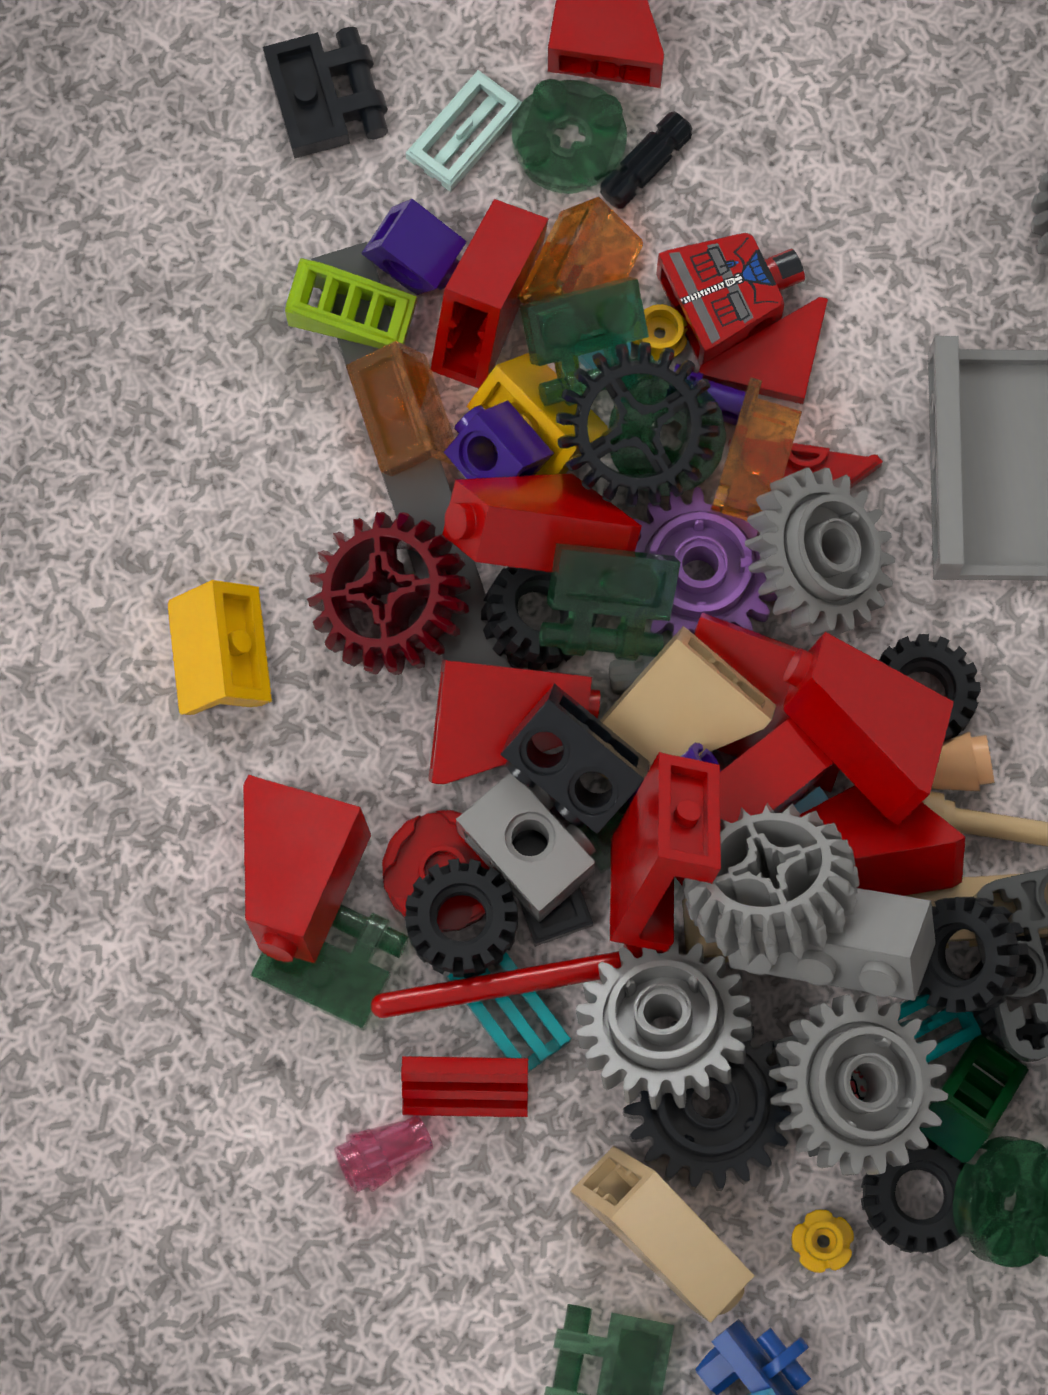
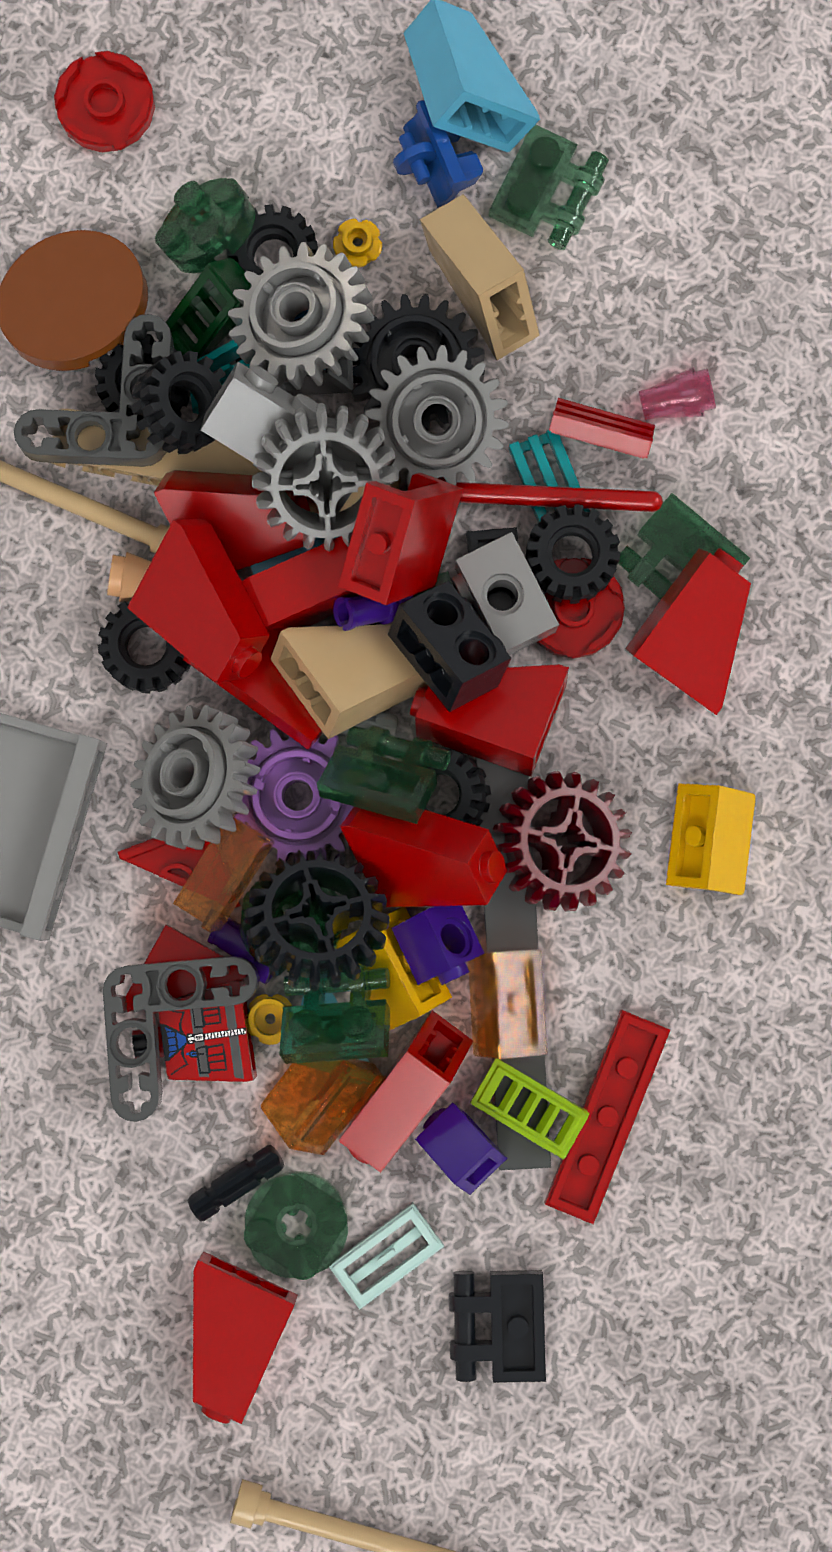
camera: 165 degrees left, 10 degrees up
(261, 331) = (613, 1107): none -> red tile
(789, 302) = (155, 999): none -> dark grey beam

